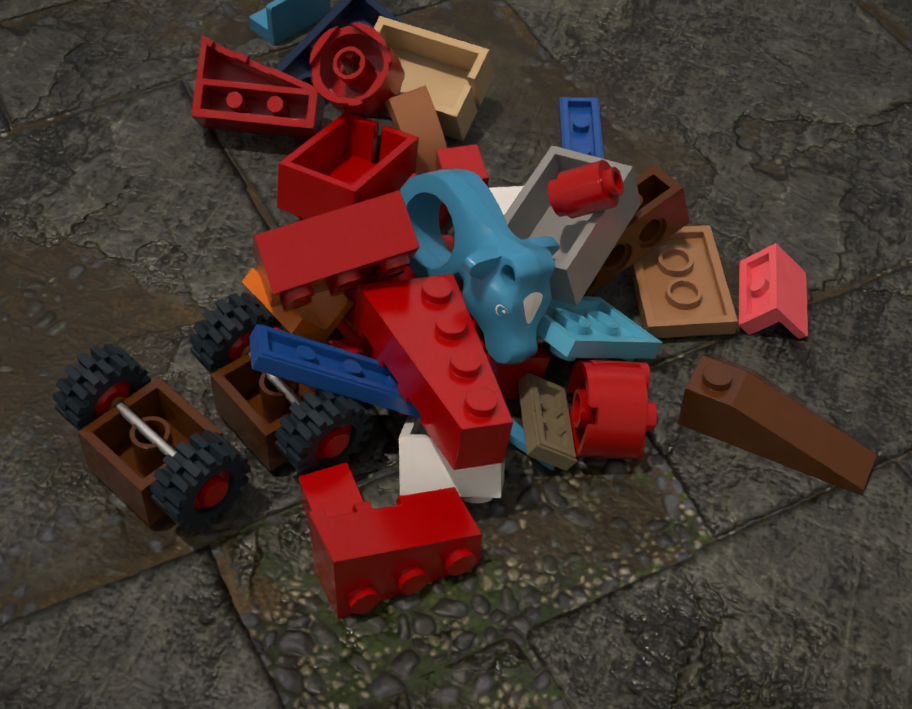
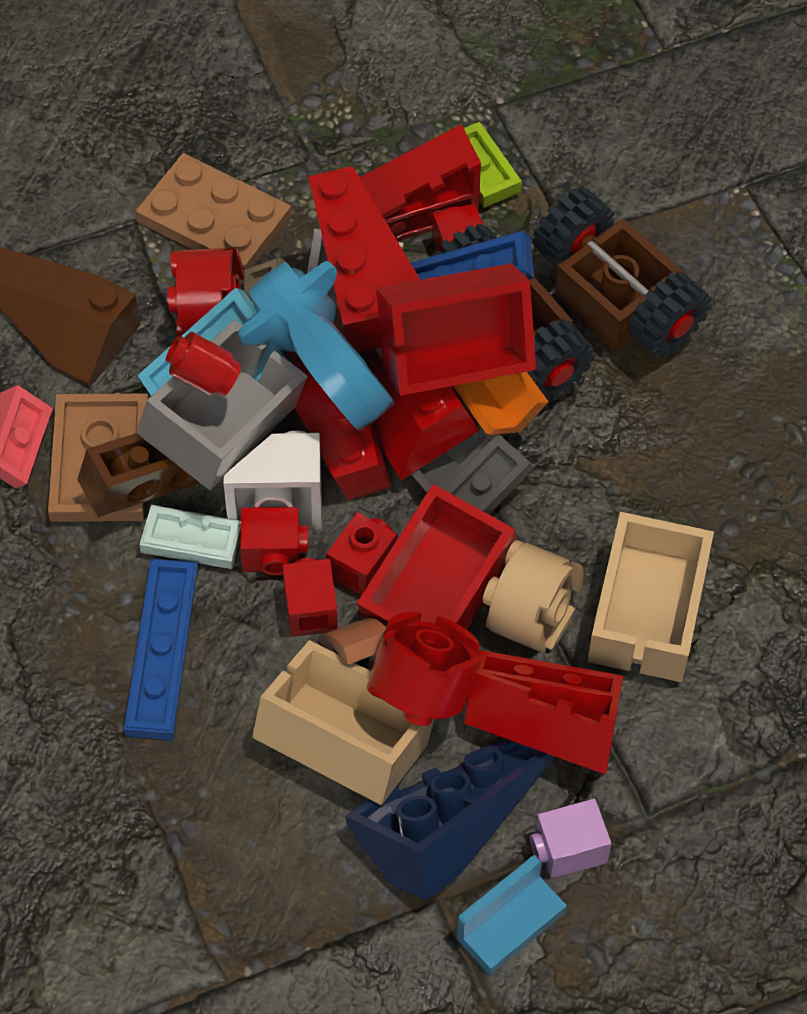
camera: 175 degrees left, 10 degrees up
(151, 187) = (650, 596): none -> tan piece
(246, 37) = (571, 839): none -> lavender brick
(254, 166) = (532, 596): none -> tan brick
(310, 615) = (497, 176): none -> lime plate
(627, 543) = (213, 211): none -> medium nougat plate

